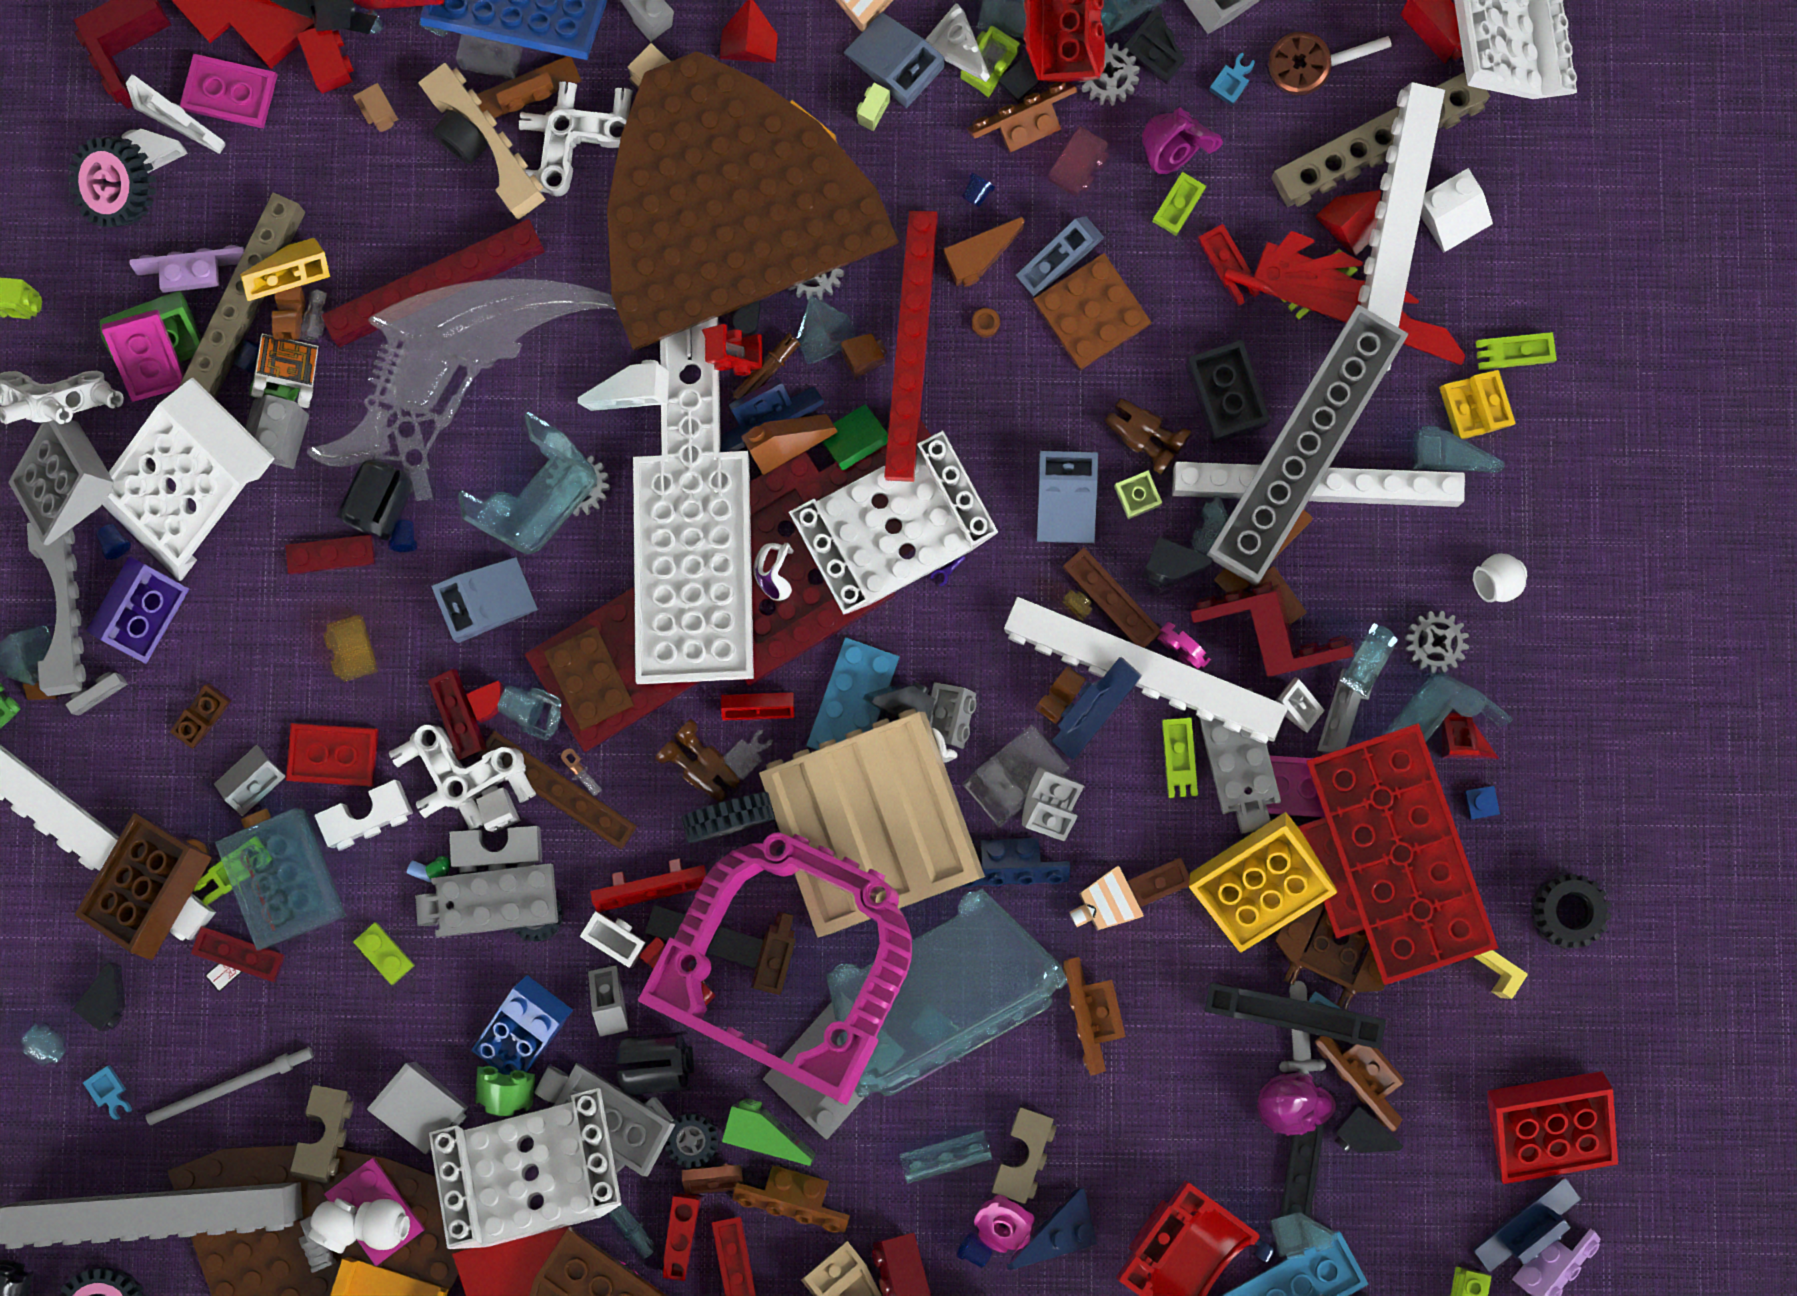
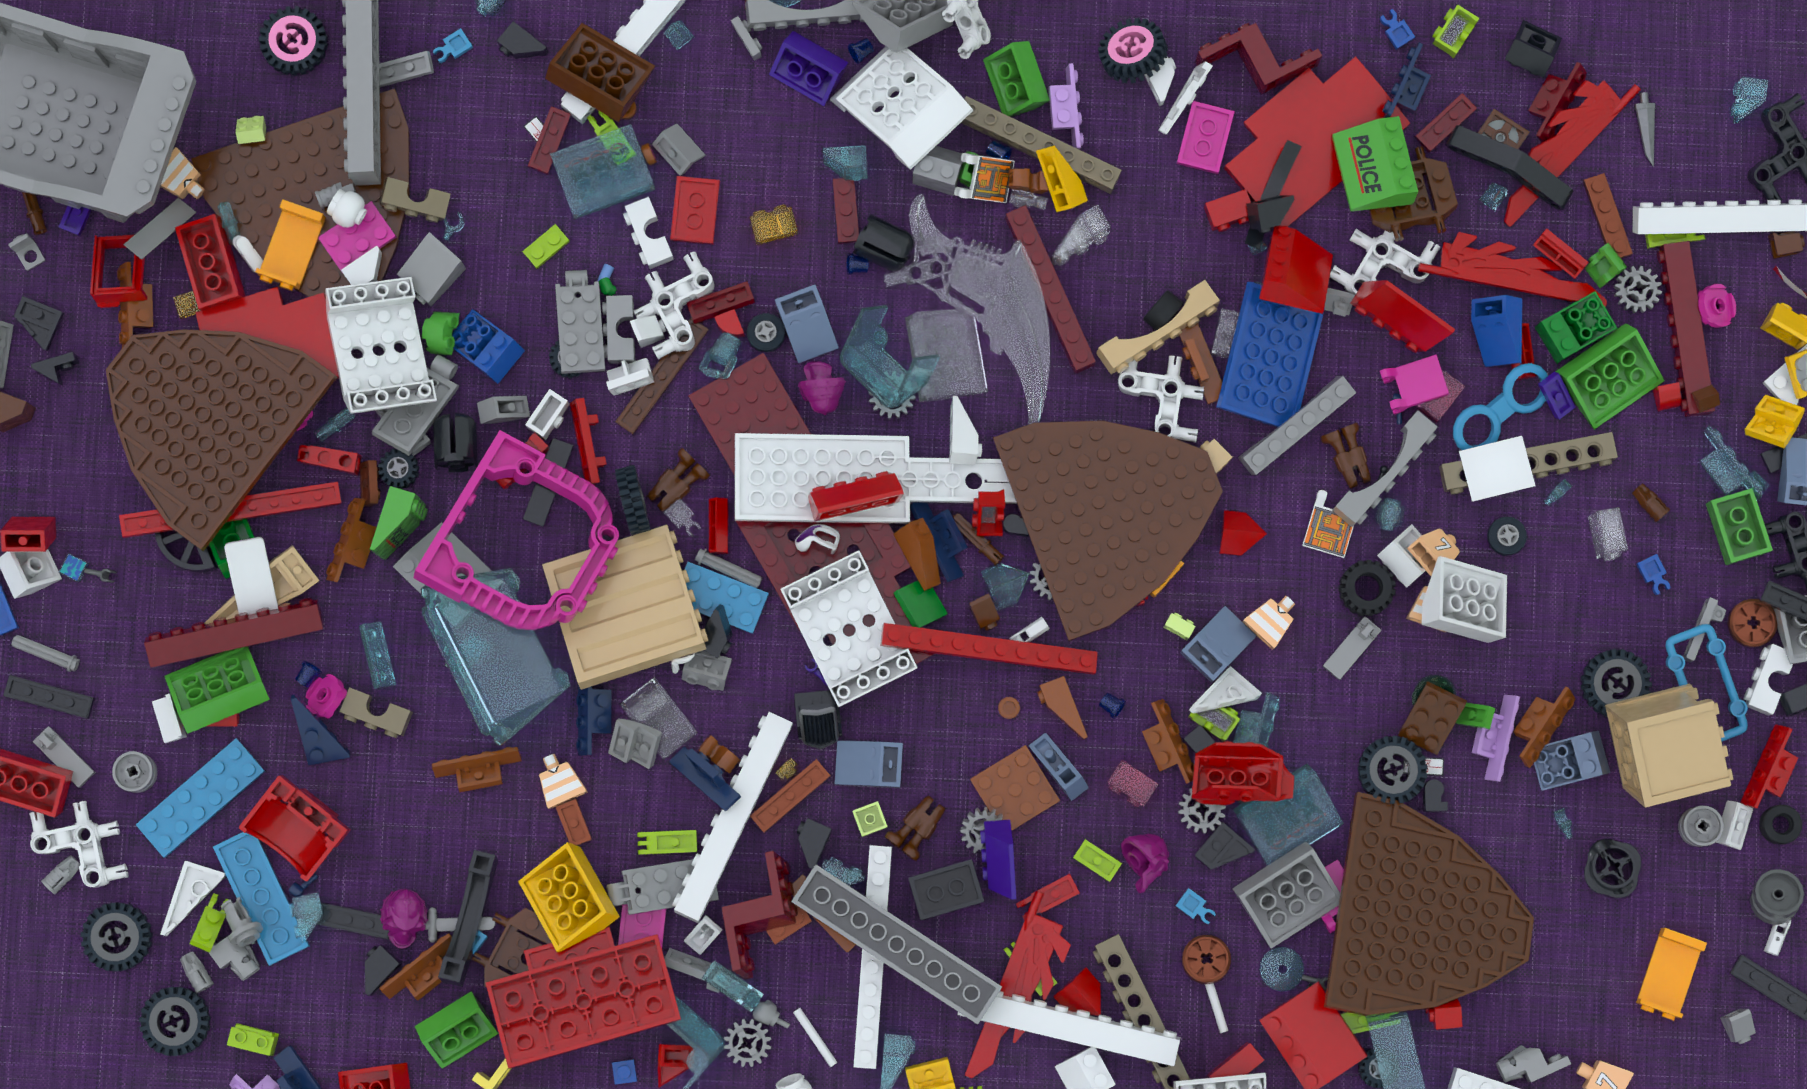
camera: 90 degrees right, 0 degrees up
(91, 786) = (678, 34): none -> clear light blue slope
(139, 1156) = (405, 68): none -> light grey hinge
(144, 355) = (998, 74): dark pink plate -> none
(201, 716) = (727, 114): reddish brown slope -> none
(264, 552) = (847, 161): none -> clear light blue slope
(281, 1064) = (468, 171): light grey bar -> none
(351, 233) = (1086, 230): none -> clear slope
(363, 1085) = (450, 229): none -> clear light blue piece
(376, 107) = (1188, 249): medium nougat brick -> none
(381, 1224) = (346, 241): white piece -> none
(418, 1198) = (365, 268): none -> white slope
(493, 644) = (763, 325): none -> black wheel
(496, 411) = (956, 341): none -> clear slope
(559, 832) = (629, 376): none -> white panel
(570, 576) = (820, 387): none -> magenta head
(580, 772) = (674, 392): piece -> none
(589, 678) = (741, 399): reddish brown plate -> none
(716, 517) = (855, 496): none -> red slope
(775, 955) = (531, 533): reddish brown hinge -> none
(814, 691) = (728, 568): none -> light grey axle
(884, 295) = (1032, 630): none -> white bar
(1009, 566) = (817, 718): none -> black piece
(1147, 346) = (975, 826): none -> light grey gear
(1185, 320) = (999, 857): none -> dark purple slope
(1190, 652) = (754, 841): dark pink plate -> none
(1398, 617) = (766, 1013): none -> light grey piece
(1423, 556) = (815, 1037): none -> white bar
(1440, 1027) = (456, 1030): none -> bright green slope

